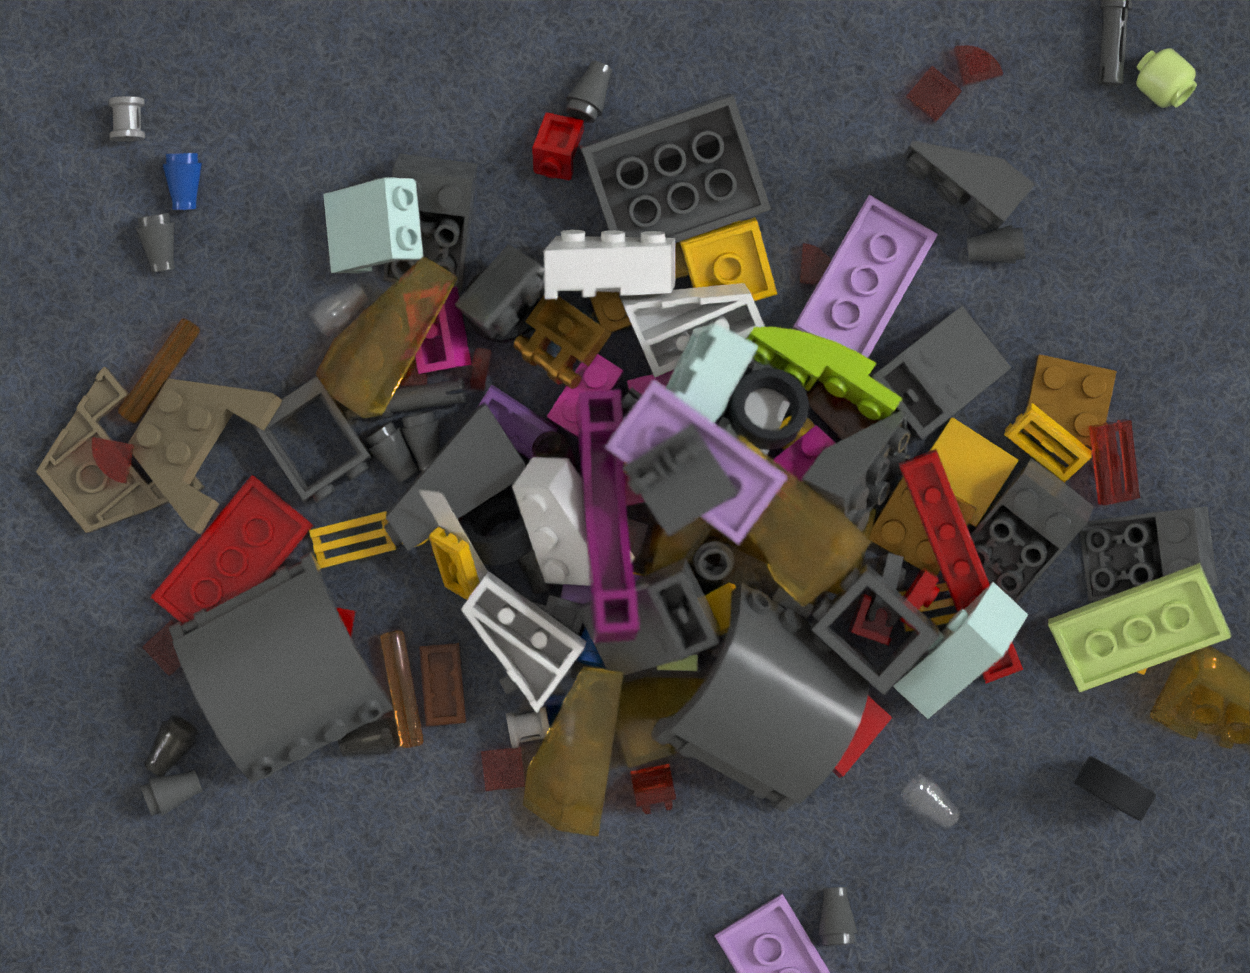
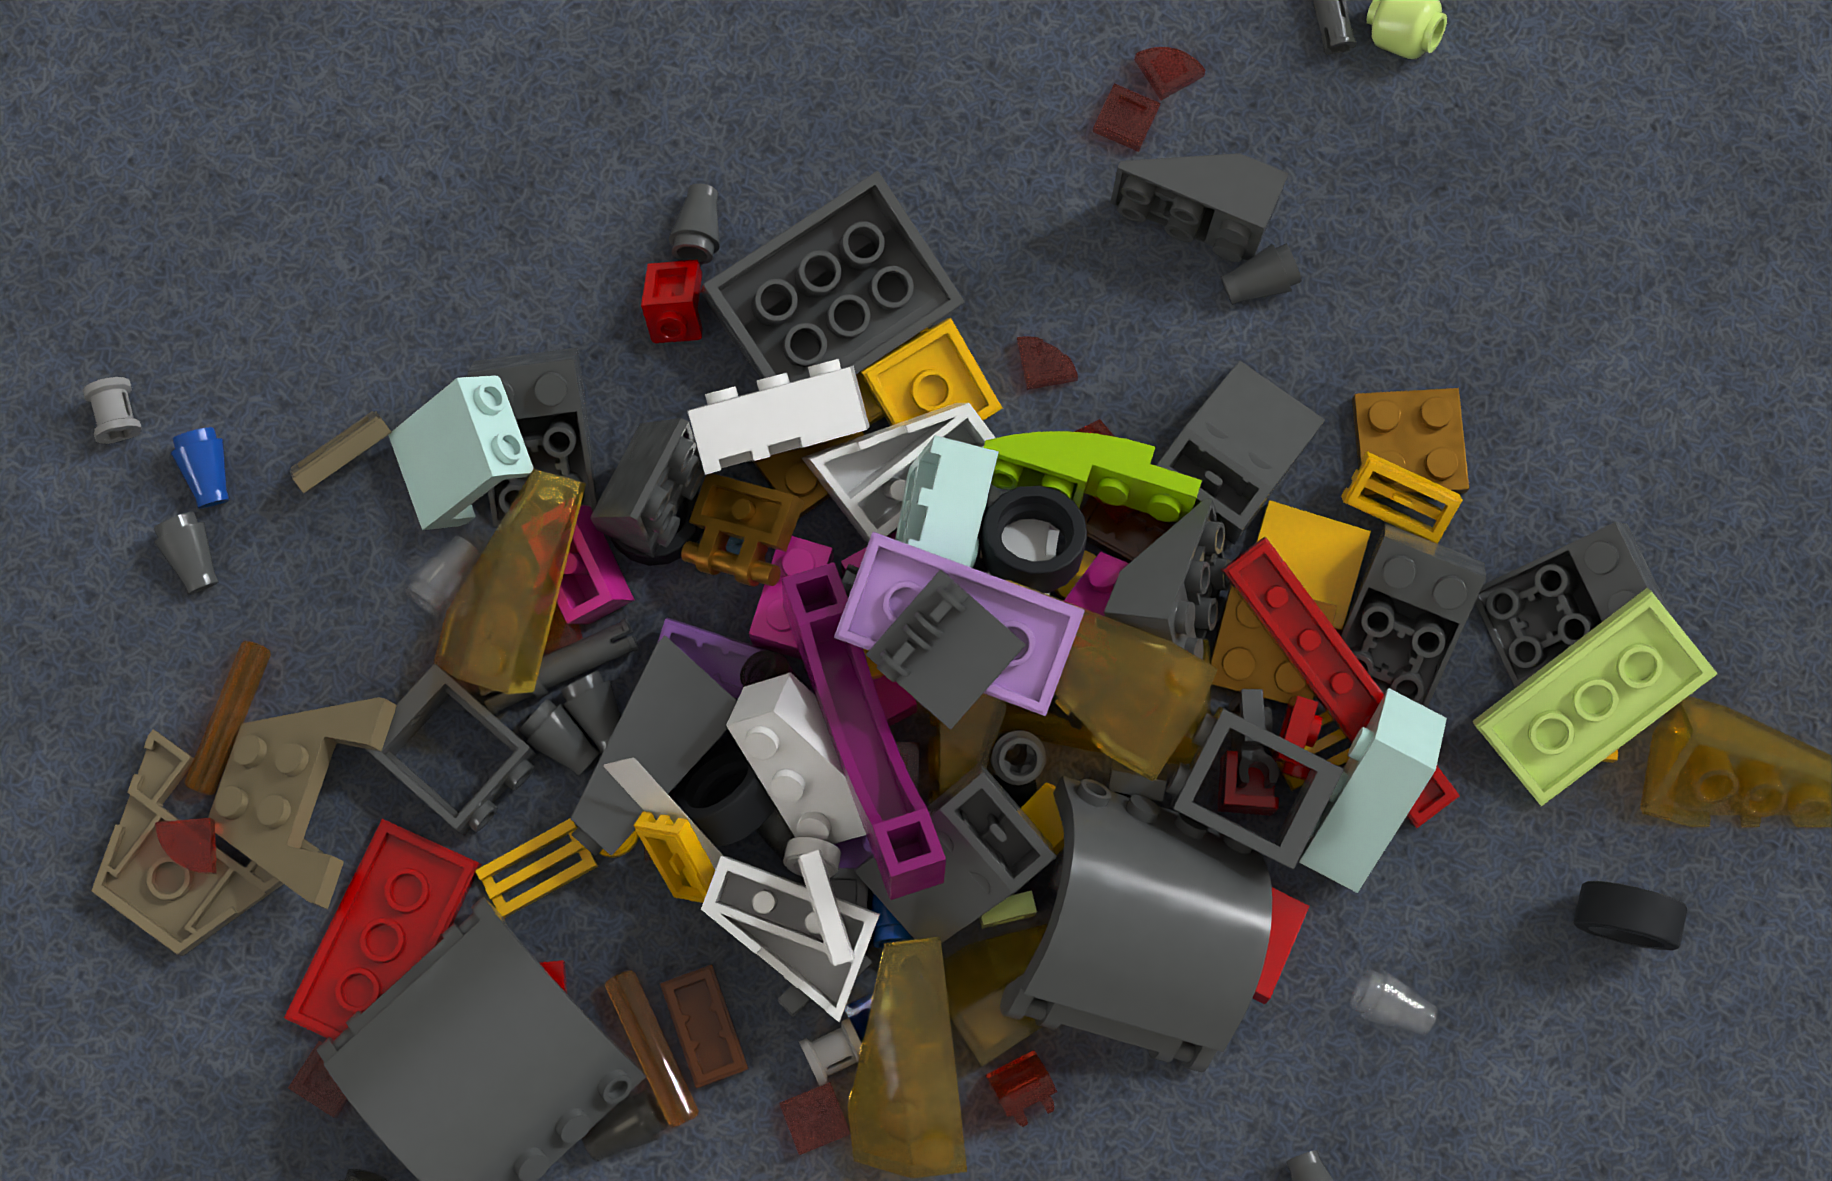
camera: 20 degrees left, 10 degrees down
(285, 196) = (339, 451): none -> dark tan tile
(481, 364) = (647, 591): clear red tile -> none
(548, 634) = (826, 908): none -> white tile
(549, 590) = (803, 845): none -> white tile
(866, 277) = (1110, 352): lavender tile -> none
(1108, 463) = (1486, 503): clear red tile -> none

